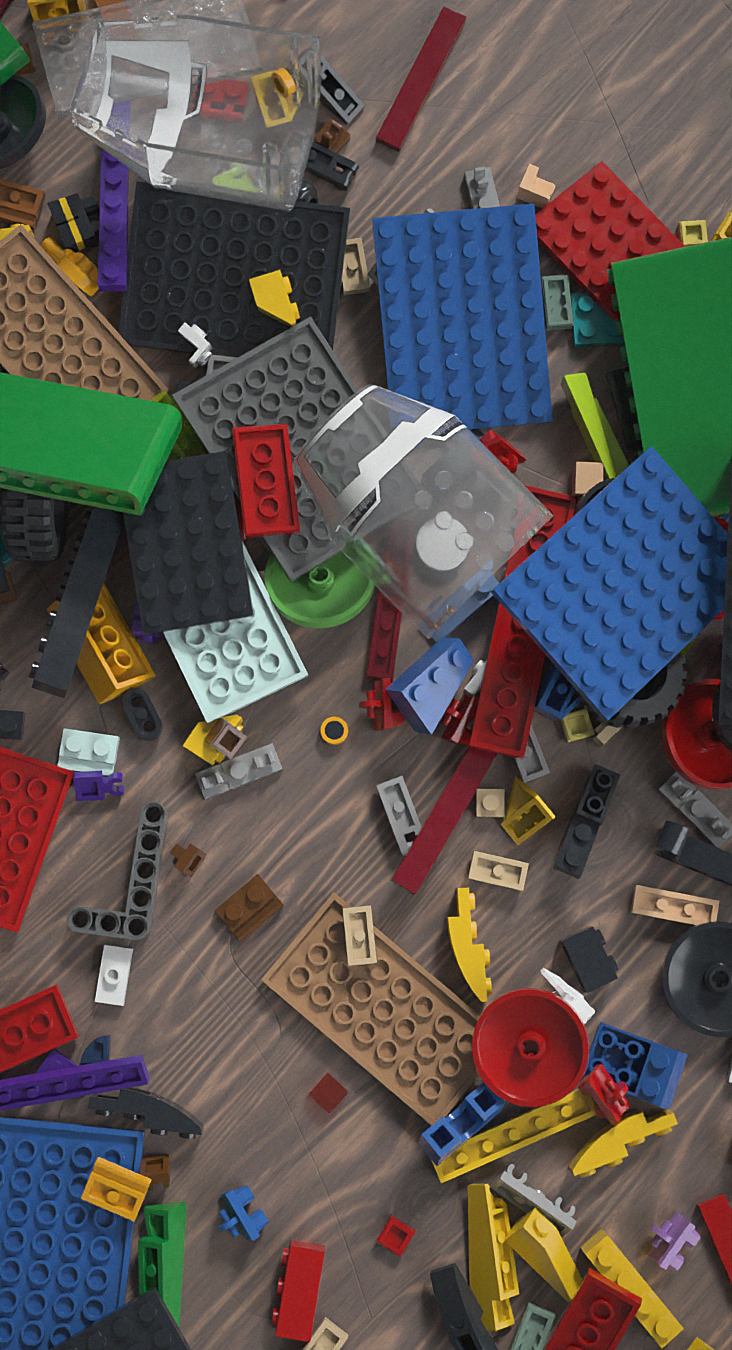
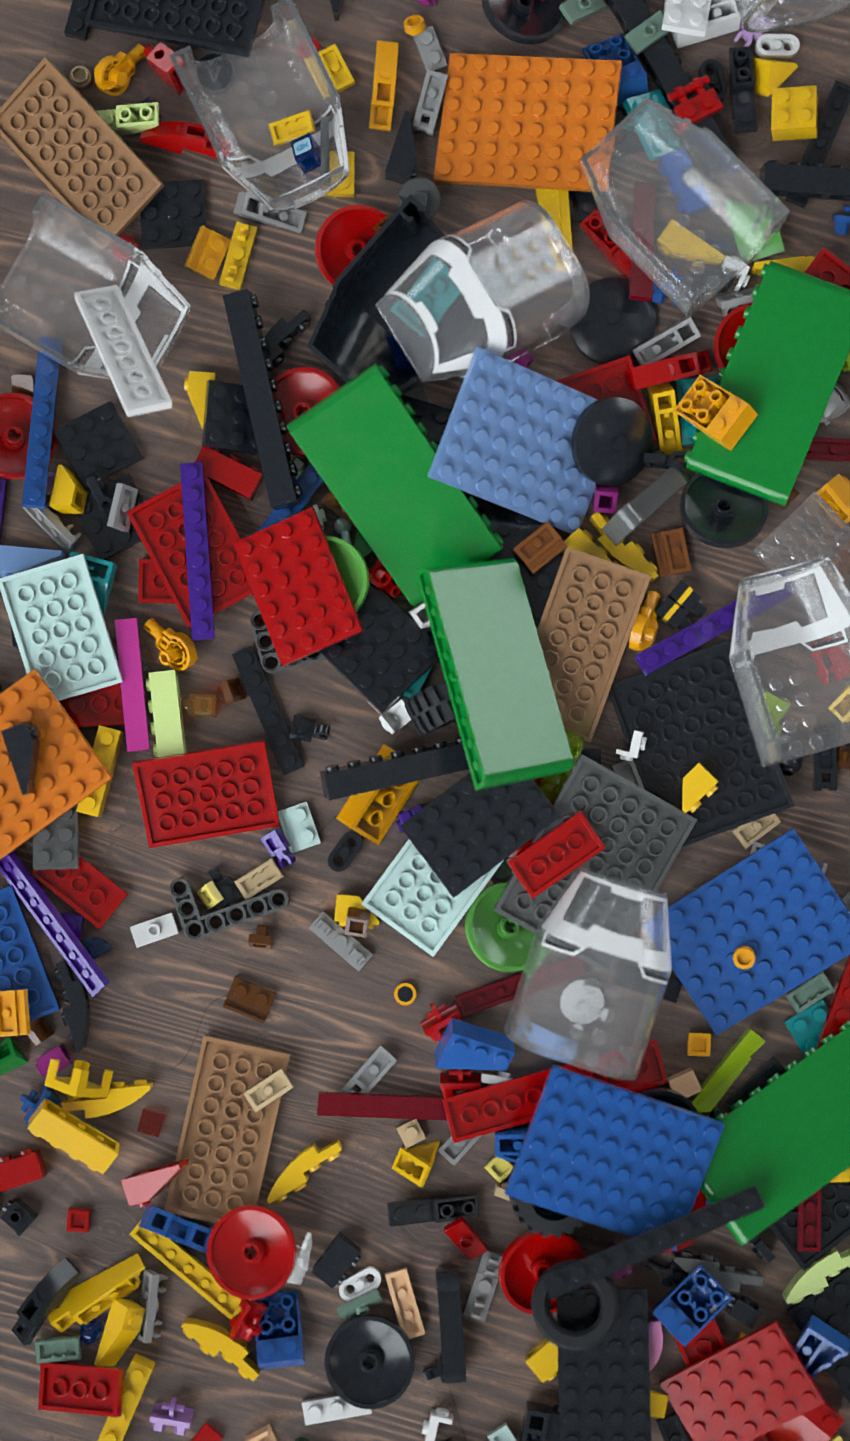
camera: 70 degrees right, 5 degrees up
(25, 579) = (395, 717): none -> white bracket
(108, 890) = (210, 895): none -> light yellow tile
(111, 871) = (225, 886): none -> black plate
(120, 825) = (259, 879): none -> tan plate
(199, 1170) = (57, 1053): none -> magenta brick
(233, 1150) = (77, 1084): none -> yellow panel
(256, 553) = (503, 871): none -> clear green tile
(279, 1117) = (118, 1098): none -> yellow slope
(295, 1190) = (73, 1136): none -> yellow brick
(358, 1295) = (25, 1213): none -> black brick
(395, 1129) = (149, 1183): none -> slope
(483, 343) = (744, 957): none -> light orange tile
(498, 870) = (365, 1163): tan plate -> none
(503, 450) = (669, 1012): red hips -> none
(529, 1287) = (90, 1332): none -> clear blue plant
(552, 444) = (698, 1044): none -> light orange plate
(628, 945) = (360, 1283): none -> white plate
(636, 801) = (466, 1238): none -> red plate
(651, 958) = (360, 1305): none -> sand green plate

